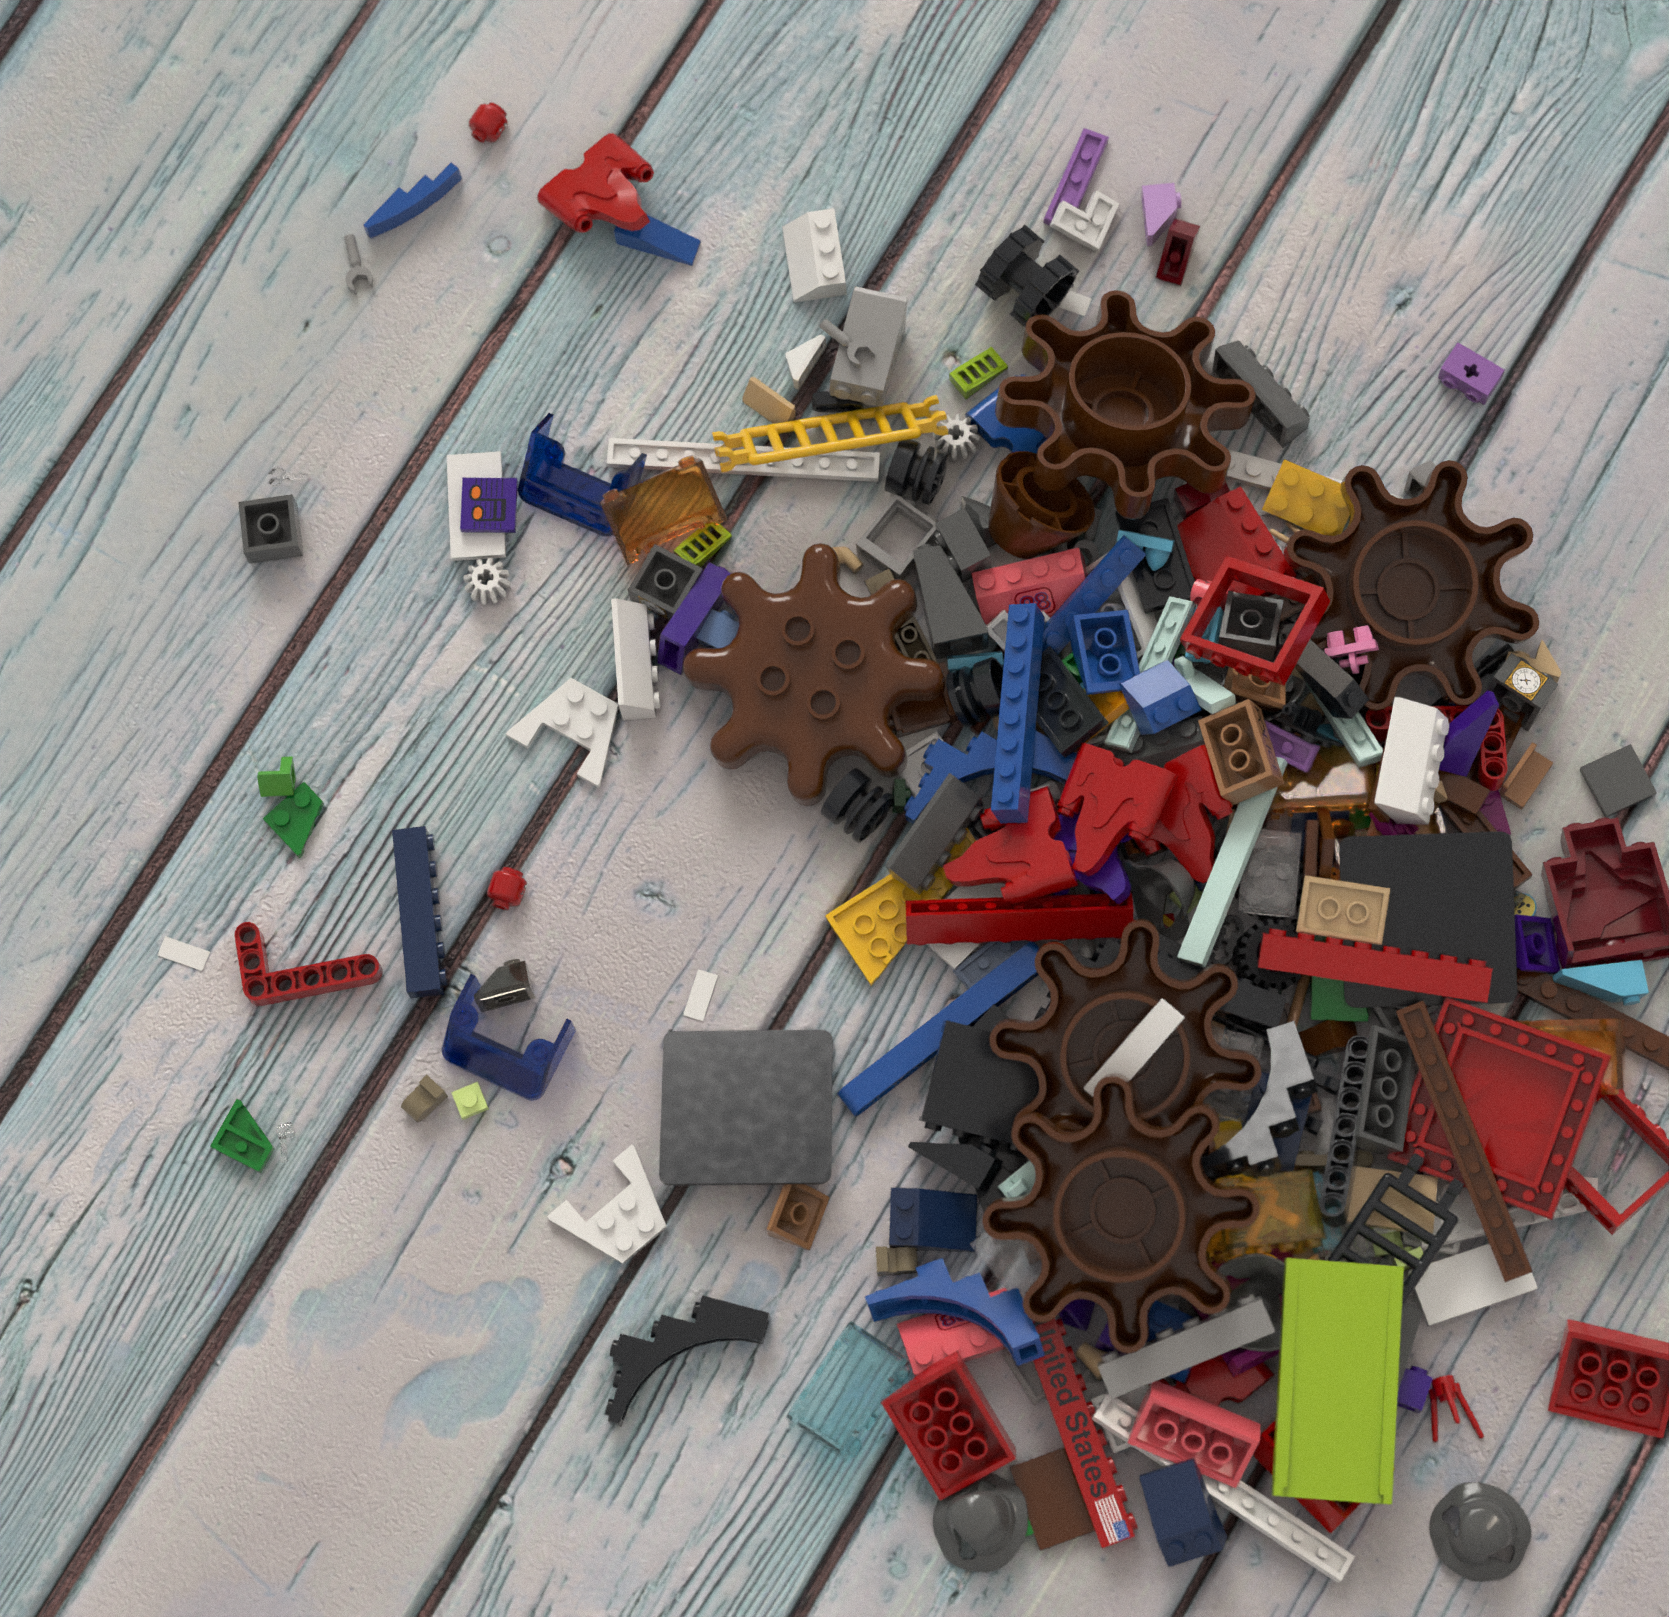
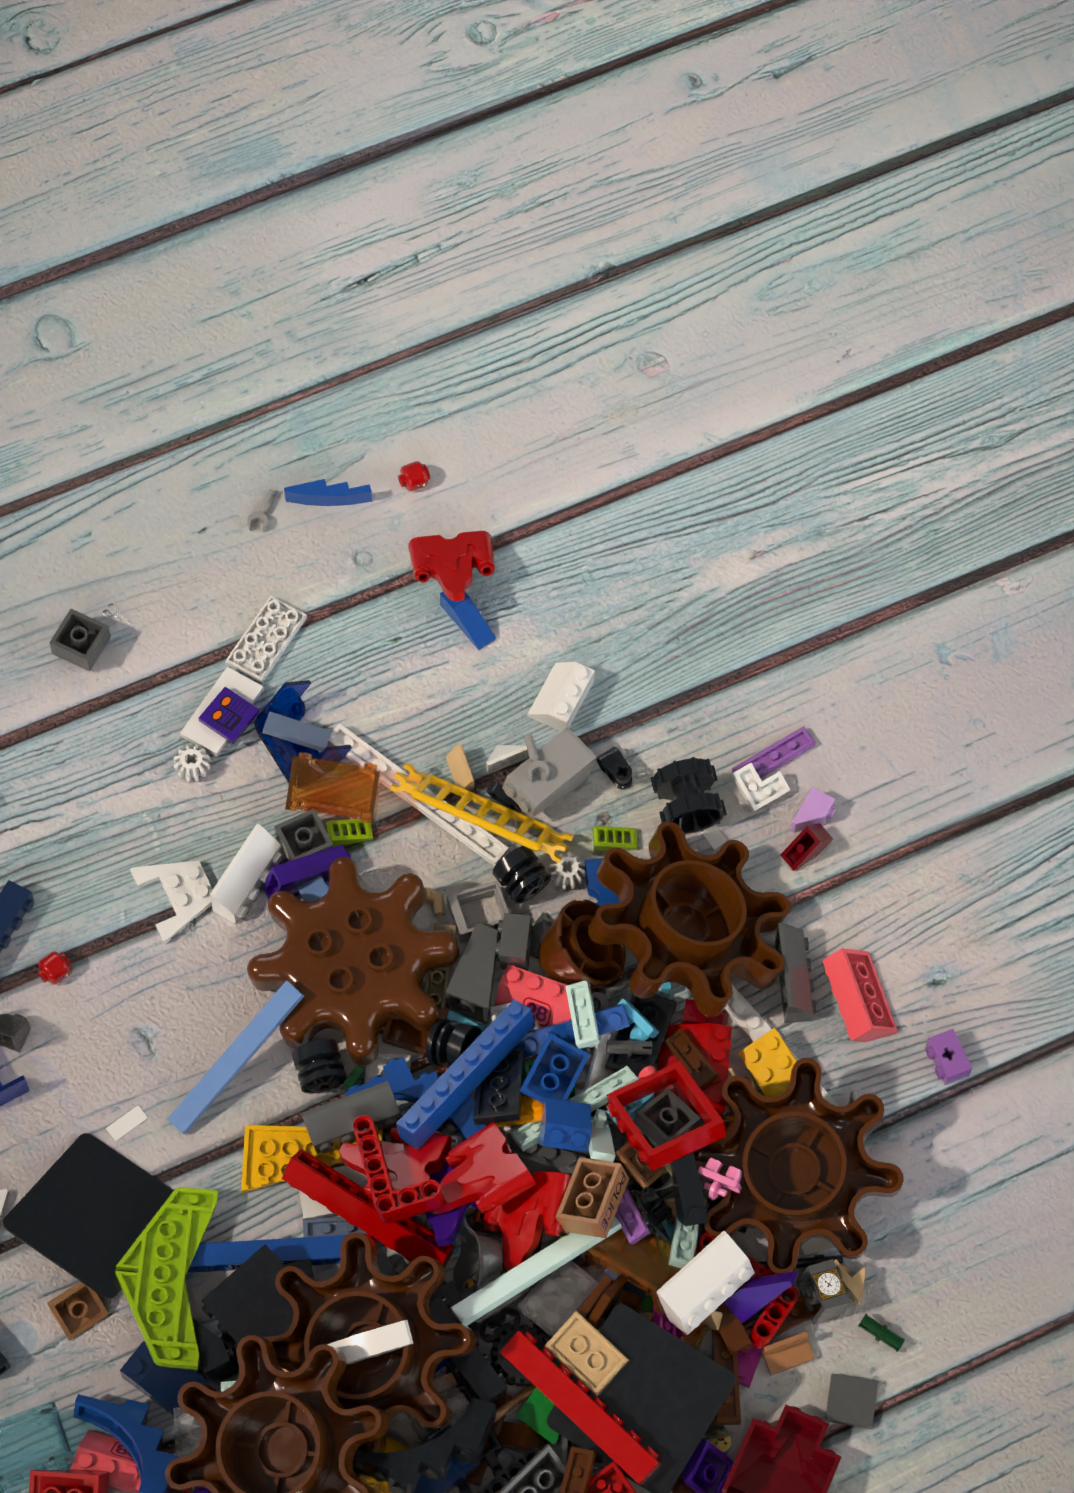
camera: 25 degrees right, 10 degrees down
(463, 399) = (266, 639): none -> white tile
(574, 476) = (296, 731): none -> sand blue tile
(769, 853) = (235, 1057): none -> medium blue tile
(868, 1137) = (159, 1288): none -> lime wing
(896, 1261) = (118, 1385): dark tan leg -> none
(923, 295) = (616, 768): none -> black piece
(1018, 874) = (381, 1178): none -> red beam
(1092, 573) = (582, 1015): none -> light aqua hinge
(1158, 576) = (628, 1047): none -> dark grey axle
(1220, 544) = (691, 1058): none -> reddish brown tile
(1339, 370) = (859, 995): none -> coral slope
(1600, 694) = (881, 1332): none -> dark green pin

